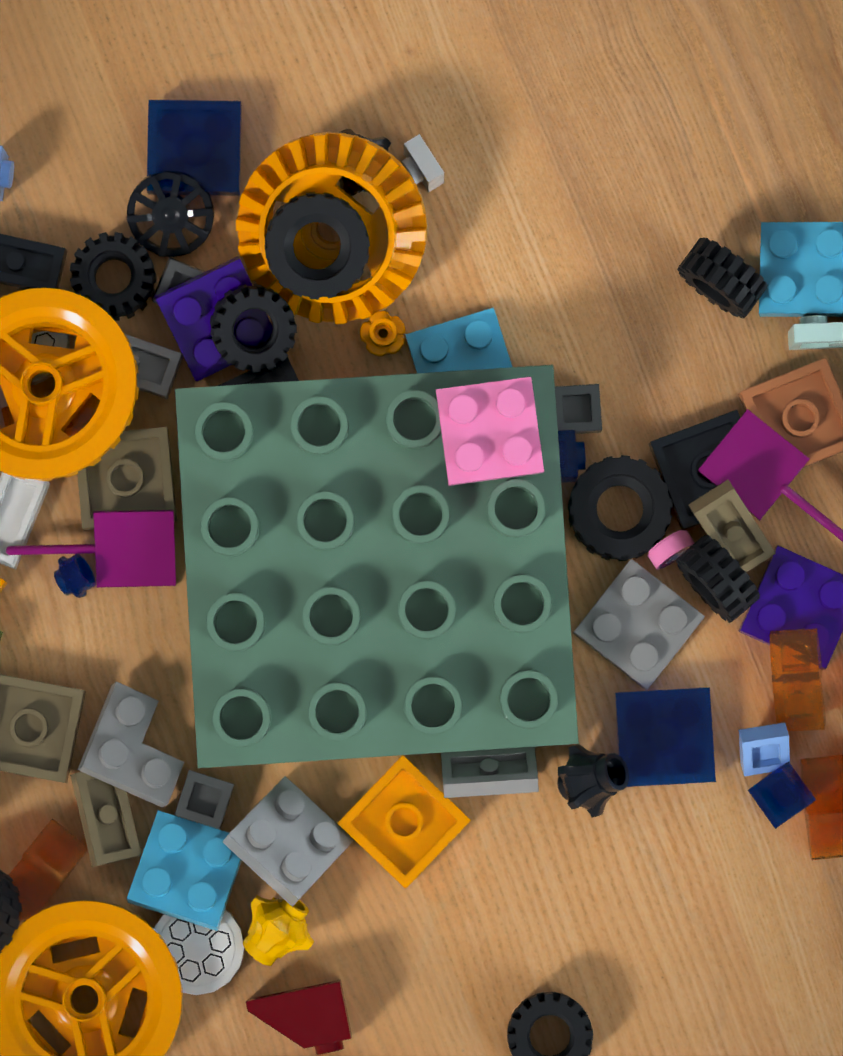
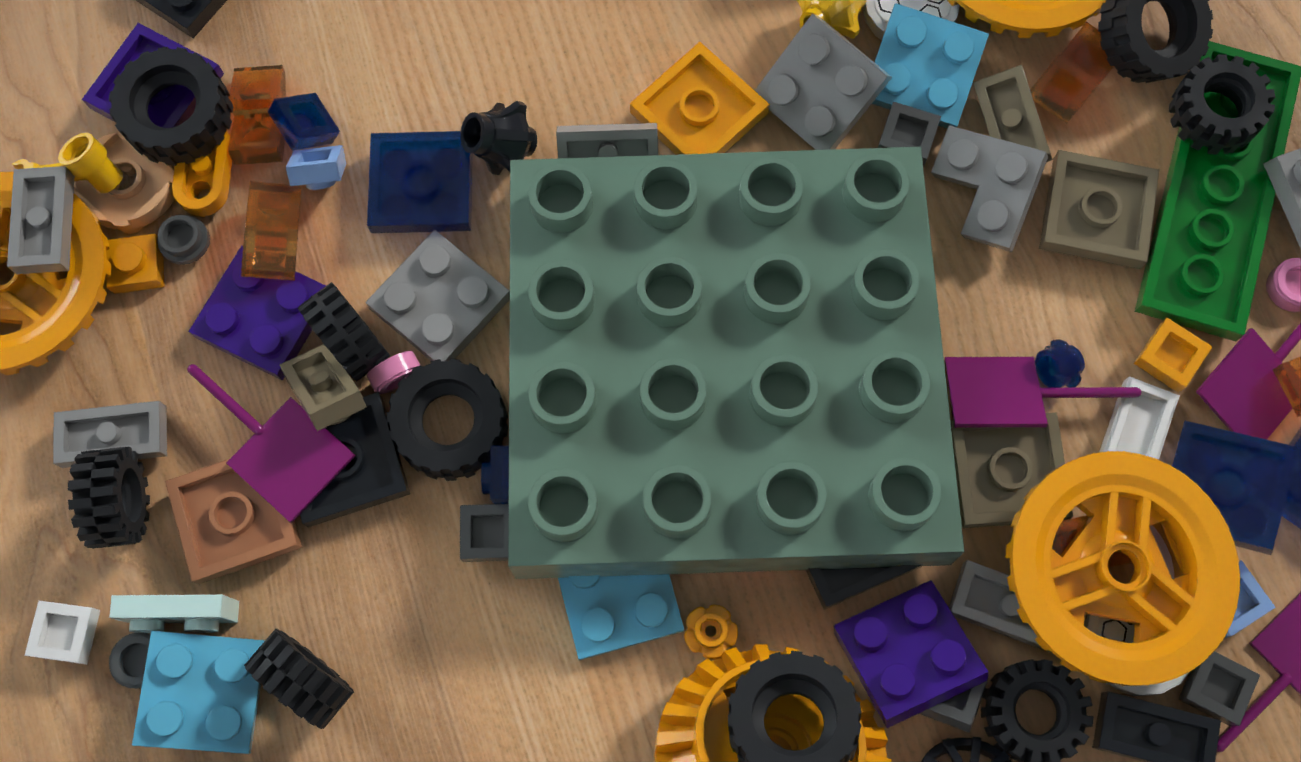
camera: 175 degrees left, 10 degrees down
(274, 348) = (869, 599): black tyre -> none
(489, 431) = (587, 476): bright pink plate -> none

